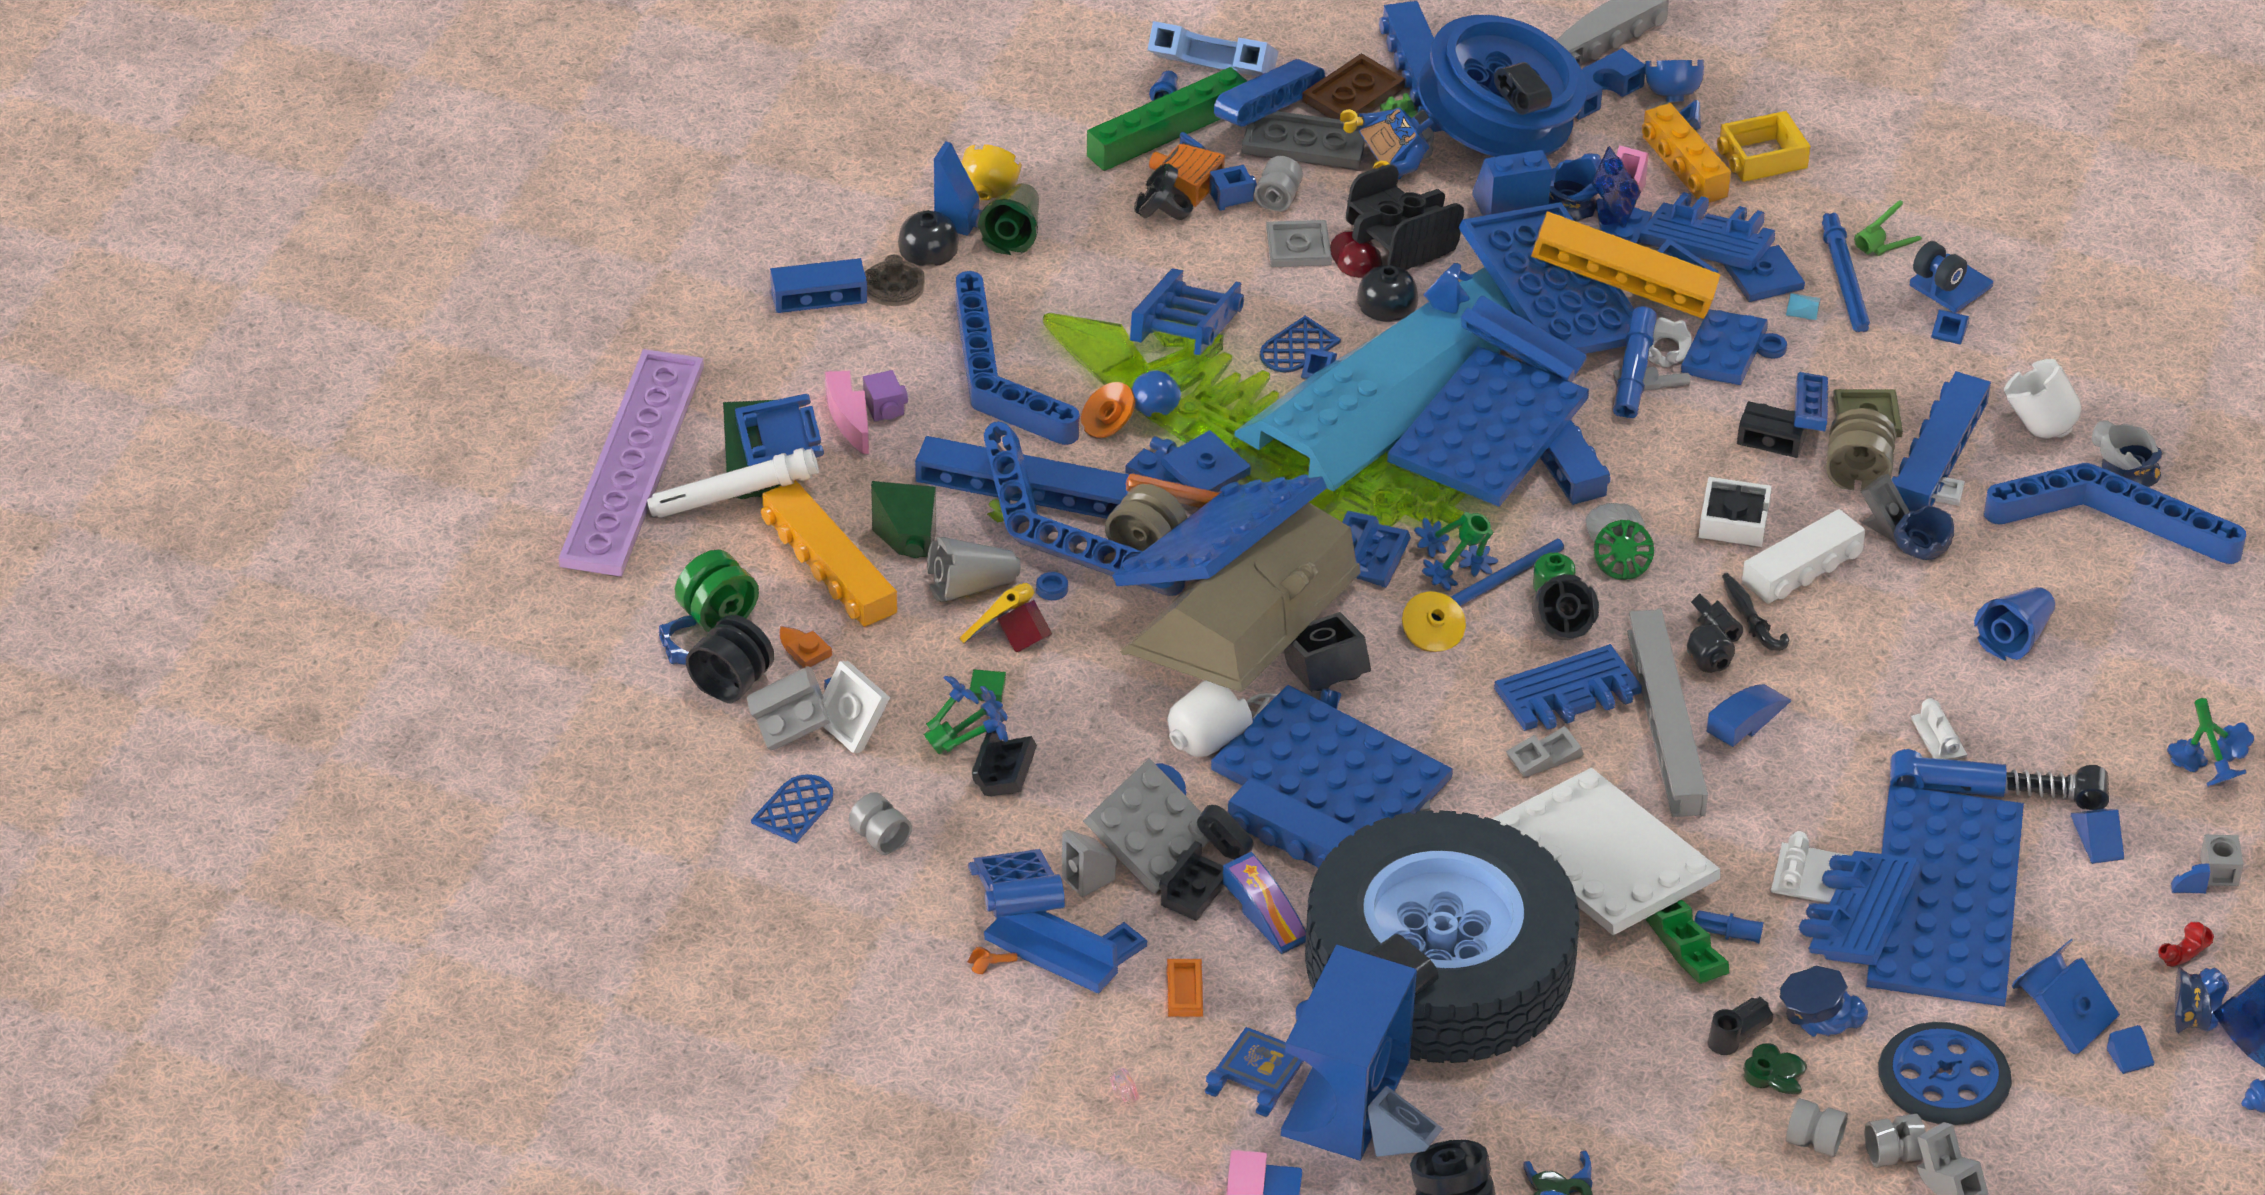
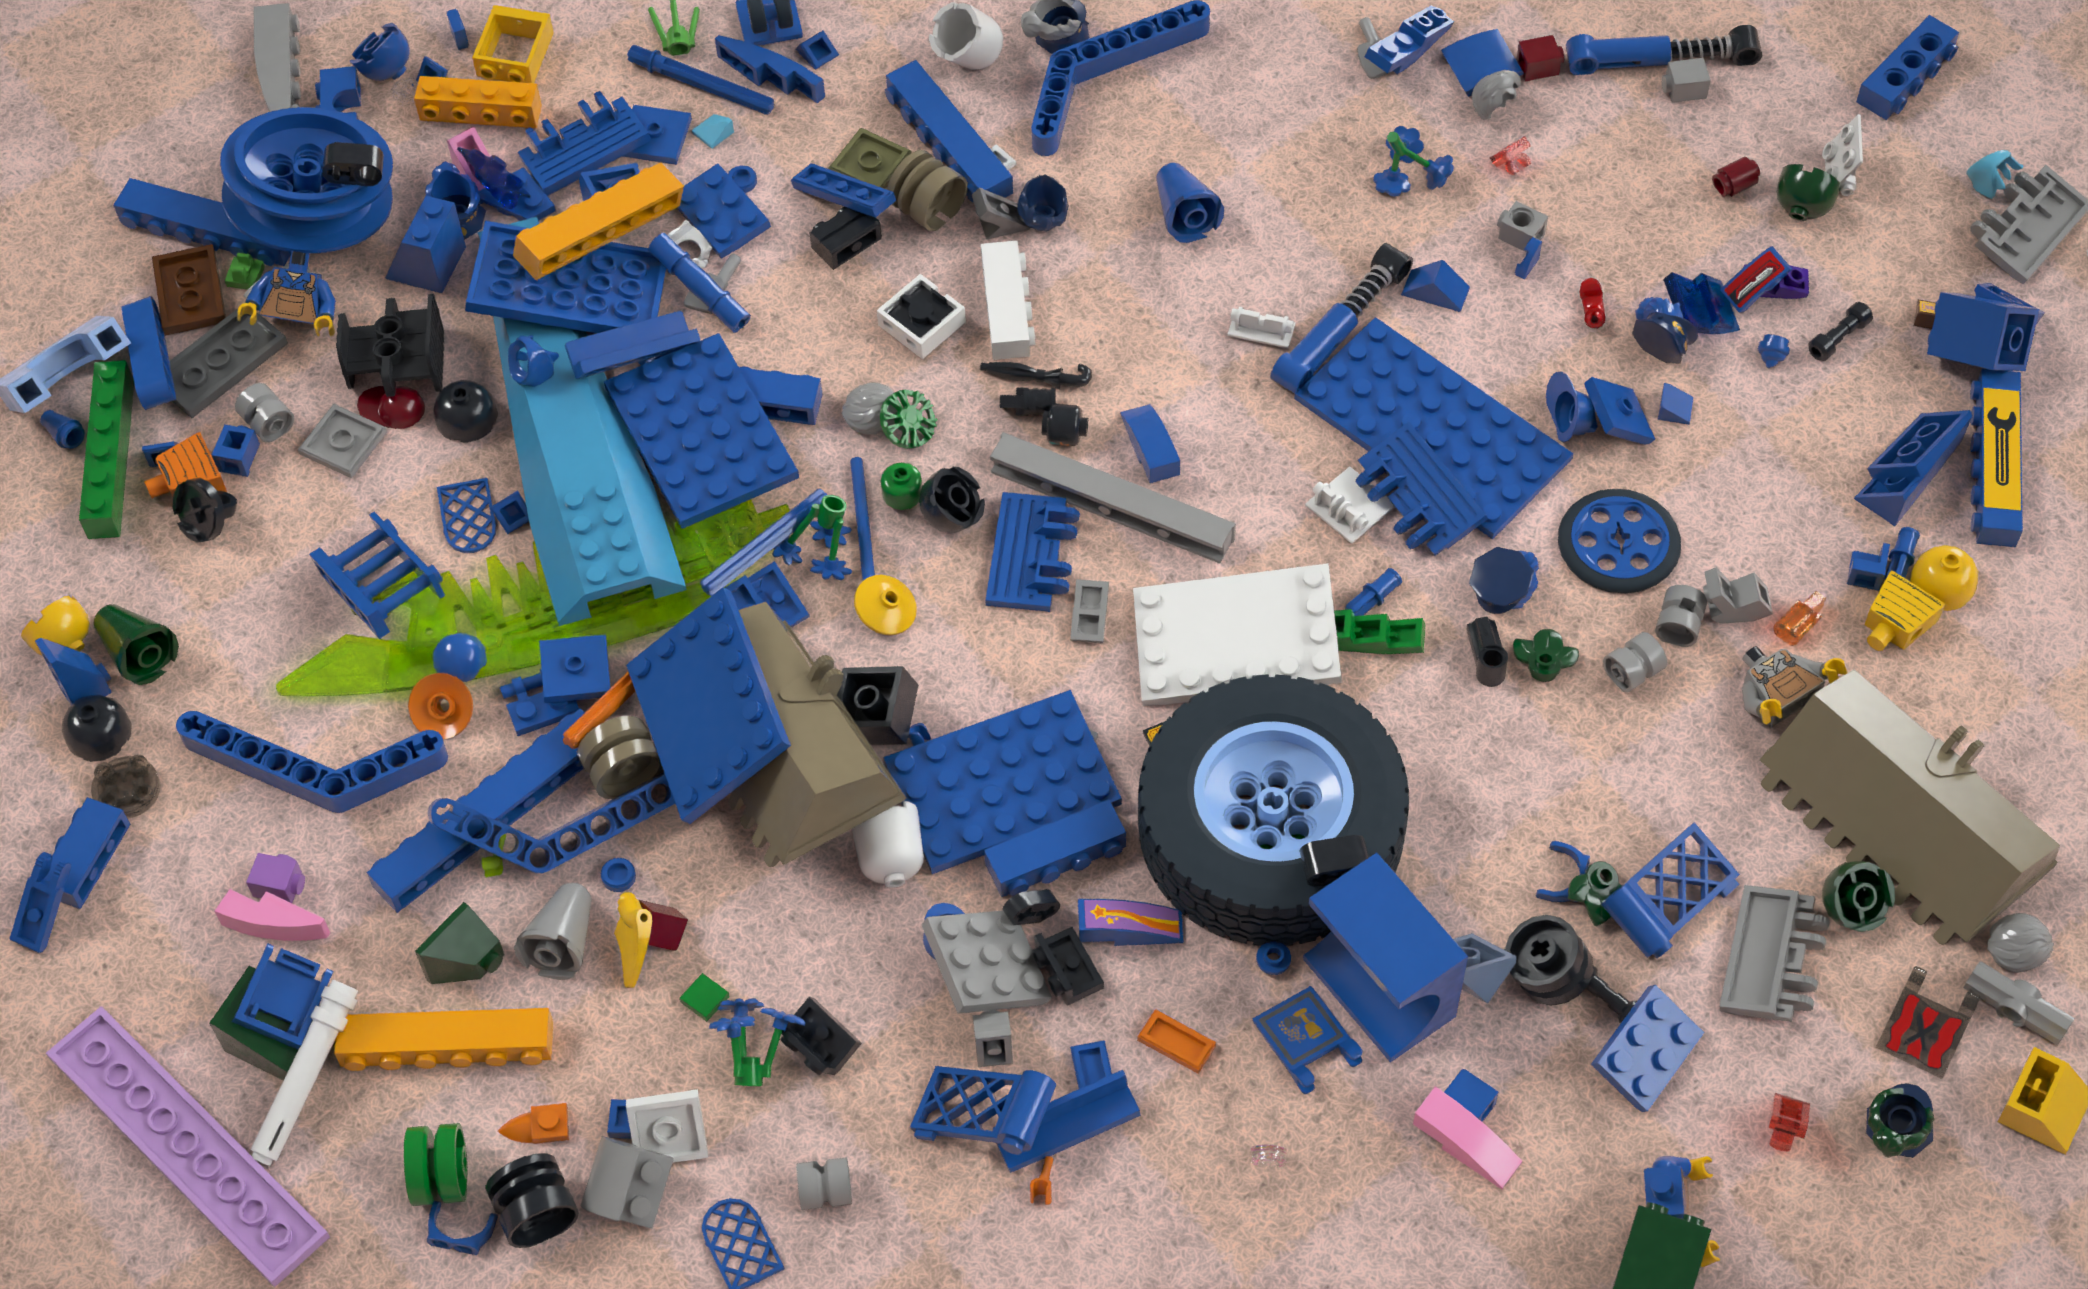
camera: 55 degrees left, 15 degrees up
(755, 278) = (40, 904): none -> blue hinge
(1402, 510) = (760, 545): none -> axle
(1747, 105) = (457, 29): none -> blue tile
(1896, 301) = (763, 64): none -> blue slope

